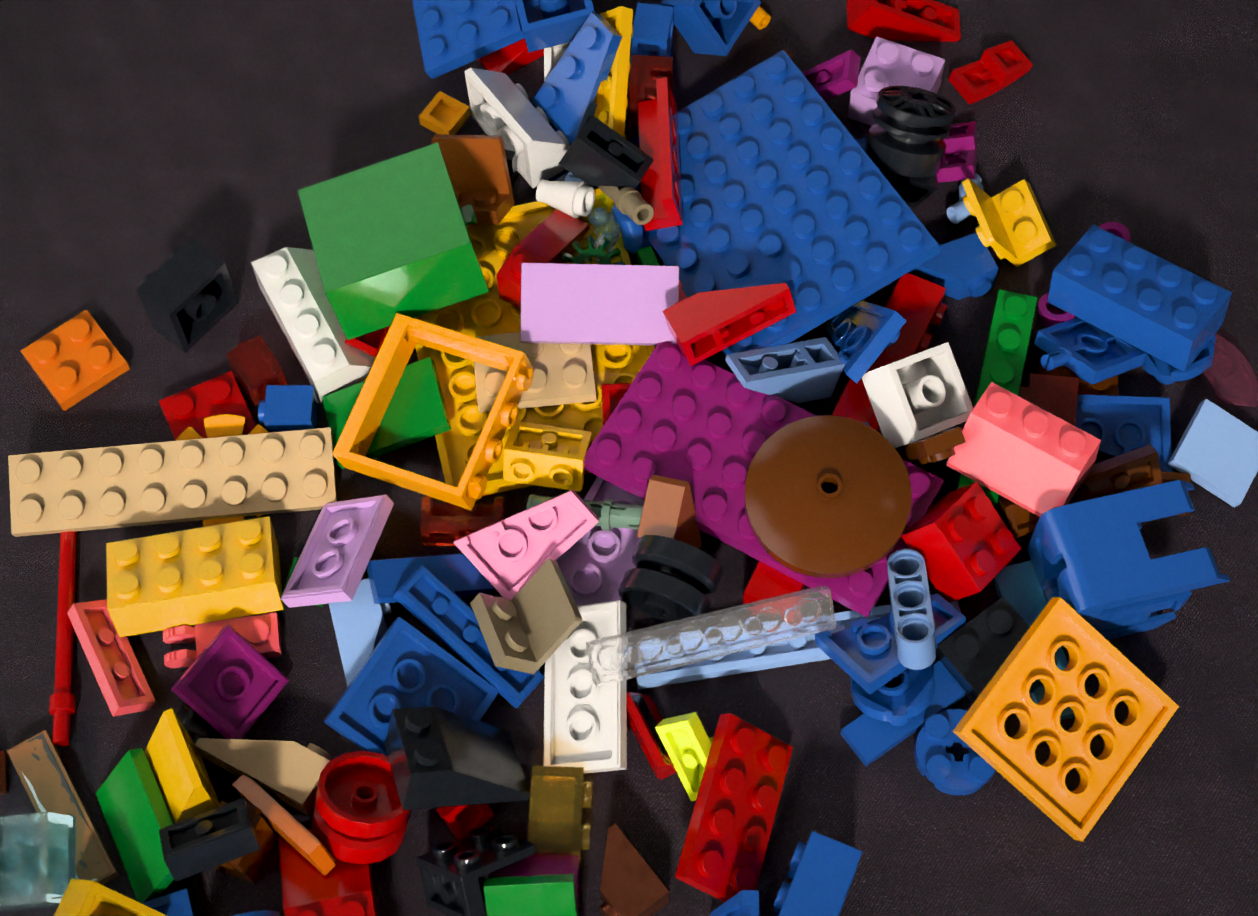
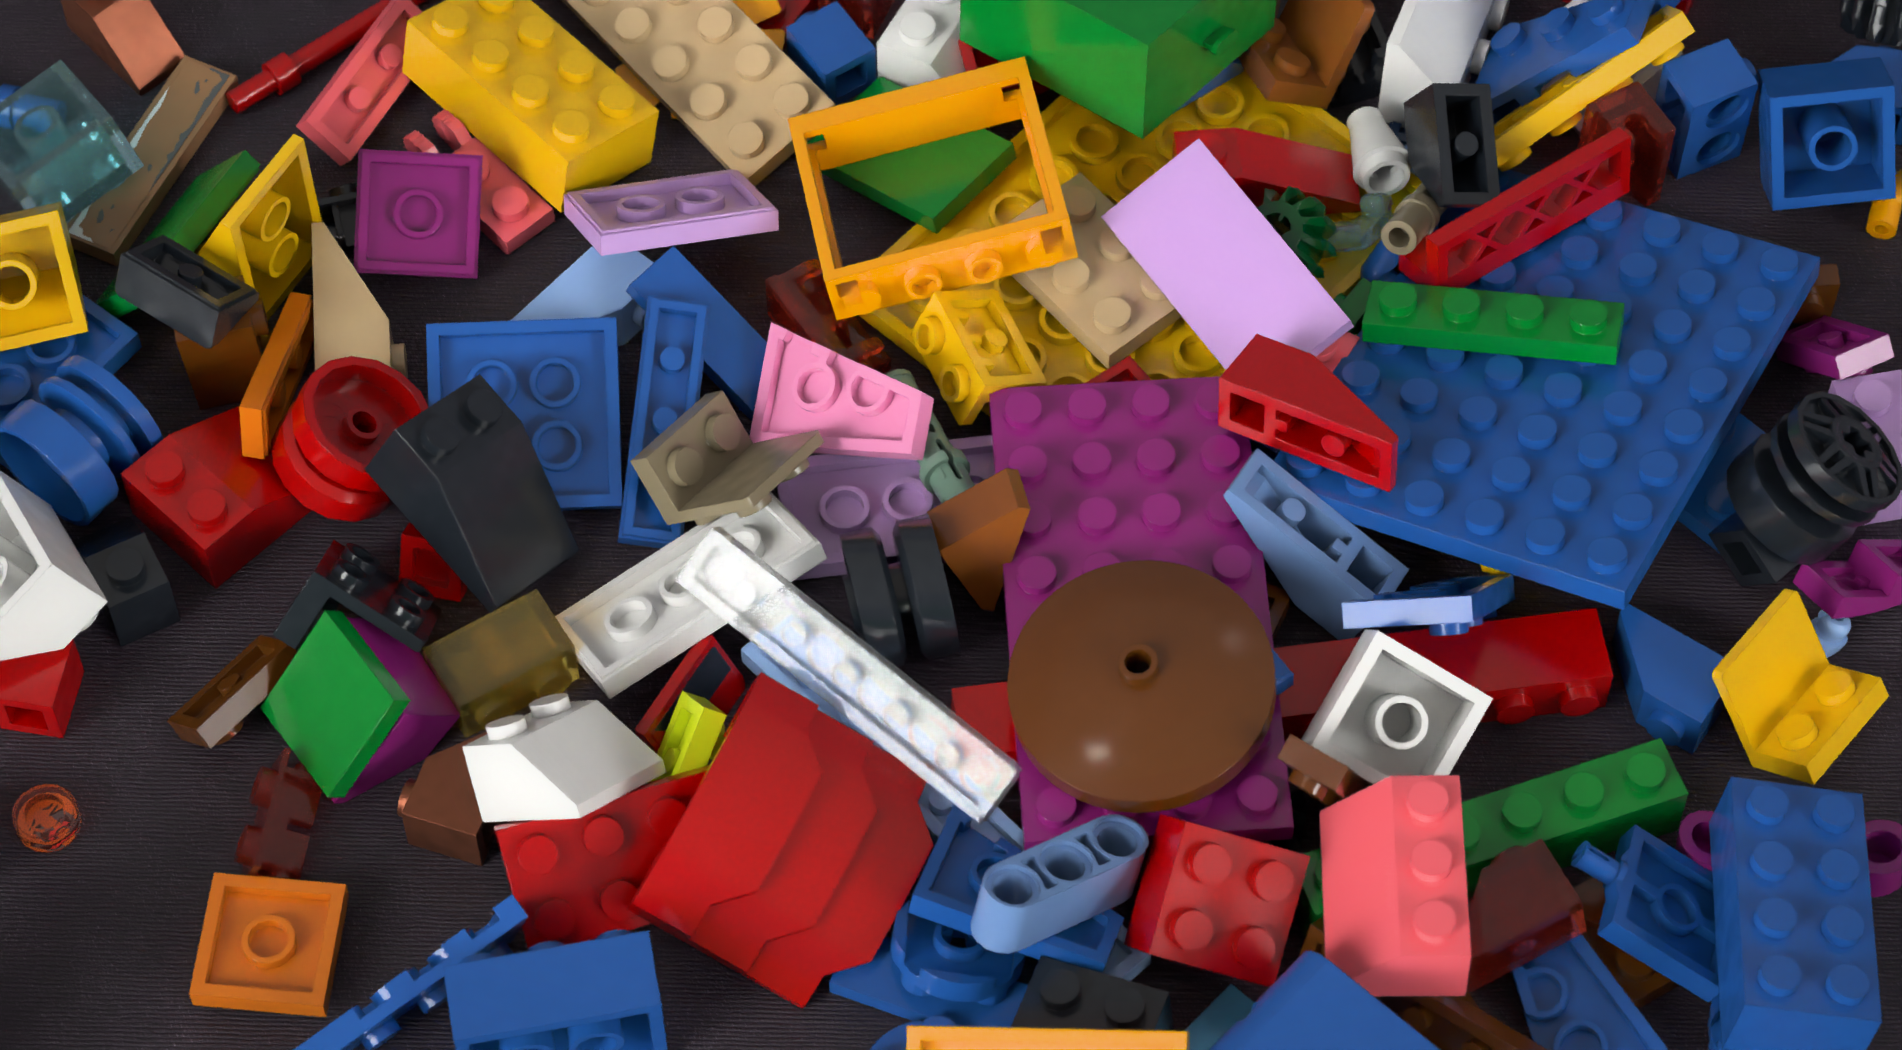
camera: 55 degrees right, 5 degrees down
(662, 818) = (556, 761): none -> white slope
(721, 207) = (1493, 322): none -> green plate
(793, 727) = (790, 847): none -> red slope

